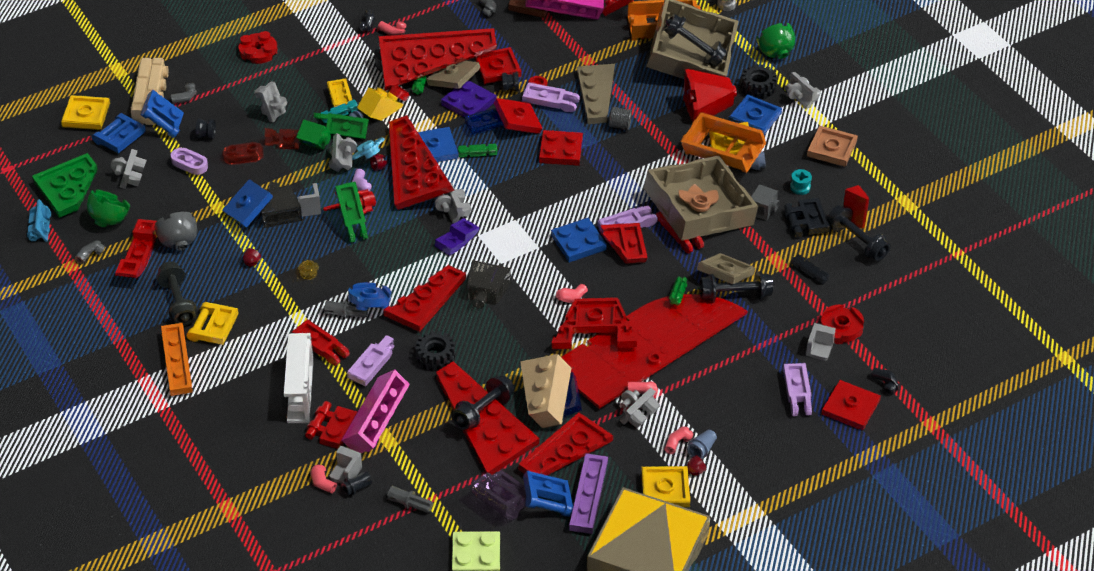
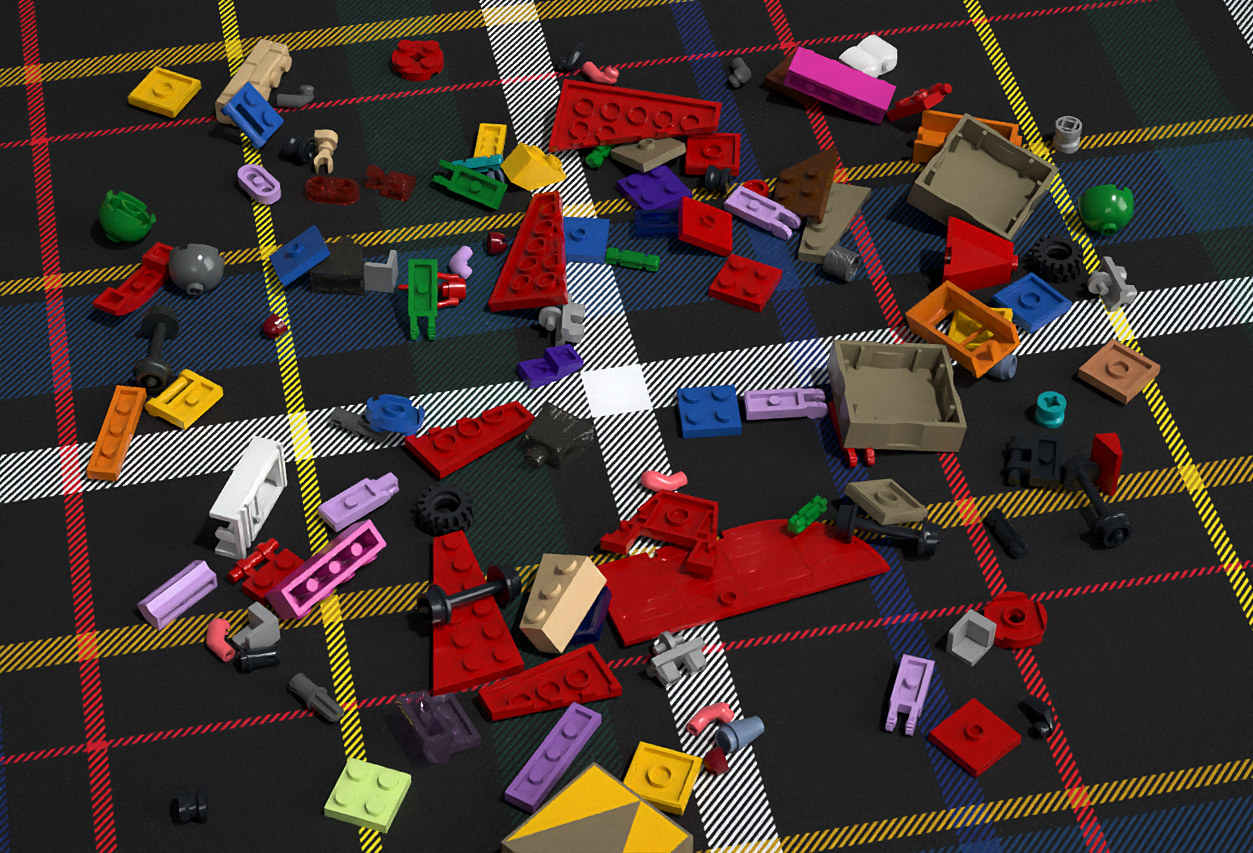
camera: 20 degrees right, 0 degrees up
(39, 222) = (40, 217): dark azure hinge -> none
(66, 183) = (94, 173): green plate -> none
(86, 251) = (81, 265): dark grey arm -> none
(119, 133) = (192, 128): blue plate -> none
(123, 167) = (176, 174): light grey hips -> none
(223, 123) = (325, 144): none -> tan piece
(272, 103) = (394, 131): light grey hips -> none
(277, 456) = (178, 594): none -> lavender piece
(308, 269) = (338, 360): clear yellow plate -> none
(313, 134) = (428, 187): green brick -> none
(323, 342) = (305, 458): red hinge -> none
(342, 153) = (452, 220): light grey hips -> none
(368, 149) = (488, 222): medium azure plate -> none
(399, 92) = (566, 159): red tile -> none
(549, 488) = (499, 734): blue plate -> none
(573, 71) = (807, 185): none -> reddish brown wing
(626, 241) = (768, 429): red wing -> none
(642, 387) = (691, 632): coral arm -> none
(698, 199) = (893, 396): nougat plate -> none
(714, 54) = (1007, 206): black piece -> none
(766, 200) = (984, 424): dark grey brick -> none

